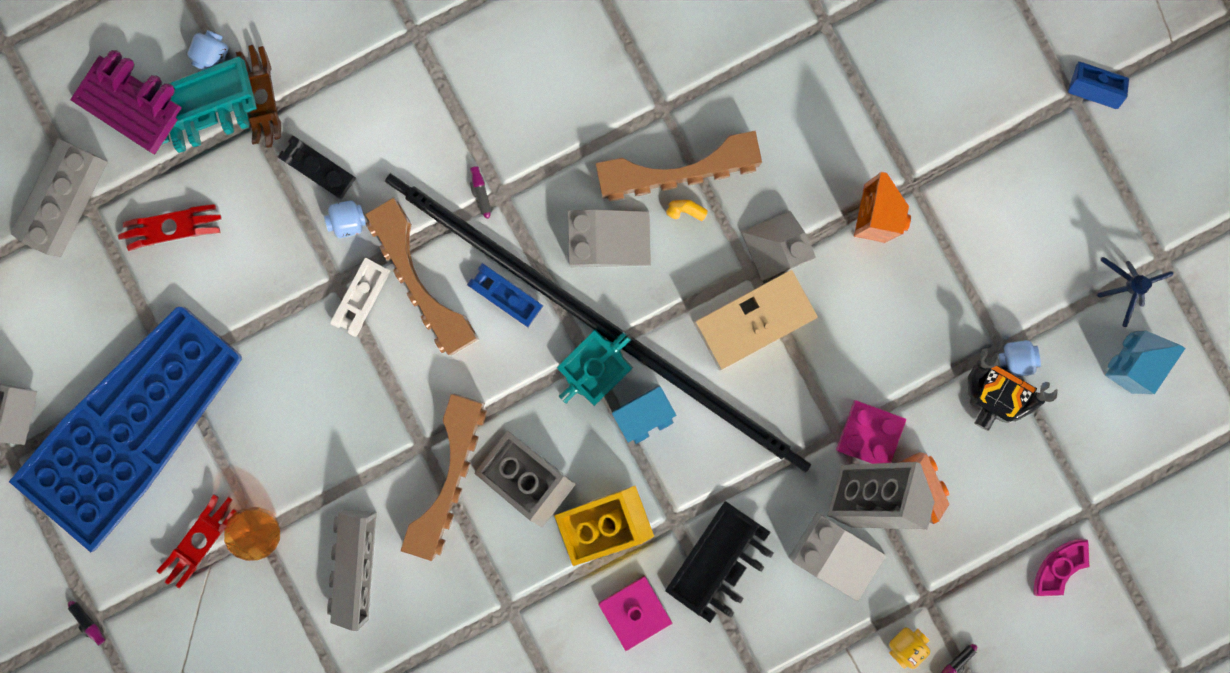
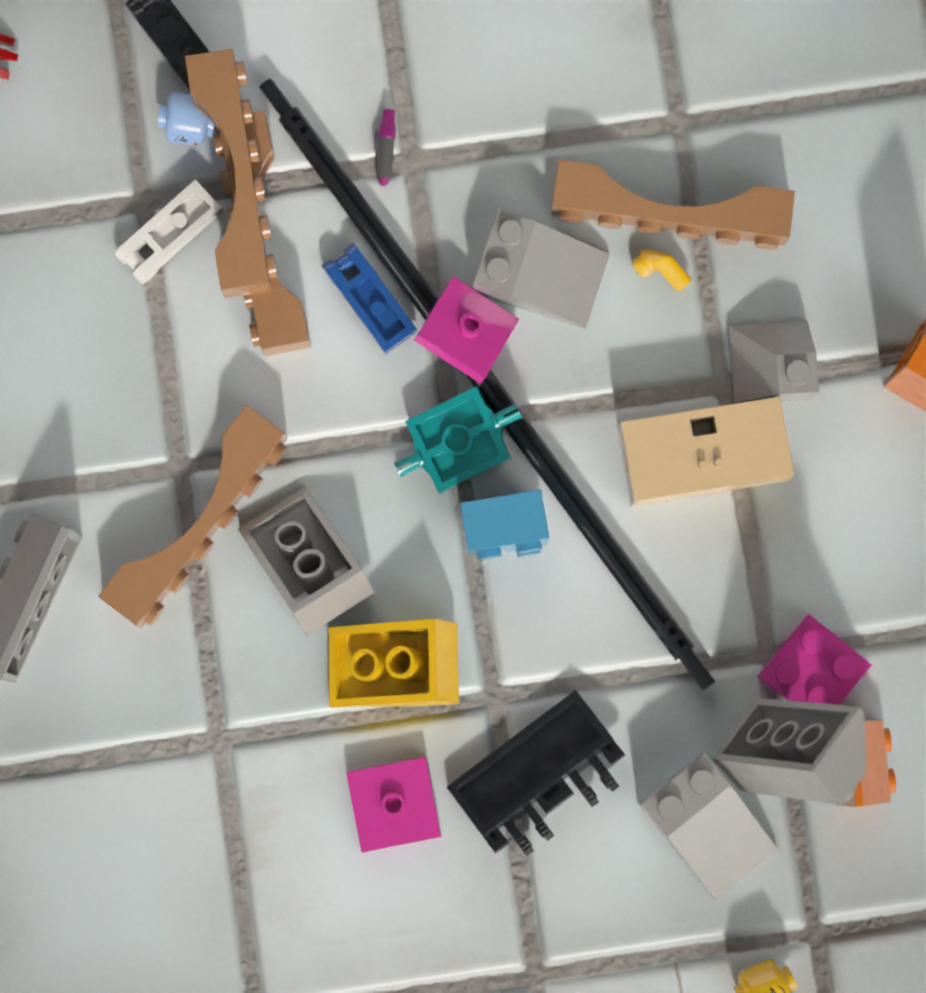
camera: 20 degrees right, 5 degrees down
(412, 297) = (241, 252): none -> medium nougat arch
(575, 295) = (466, 329): none -> dark pink plate

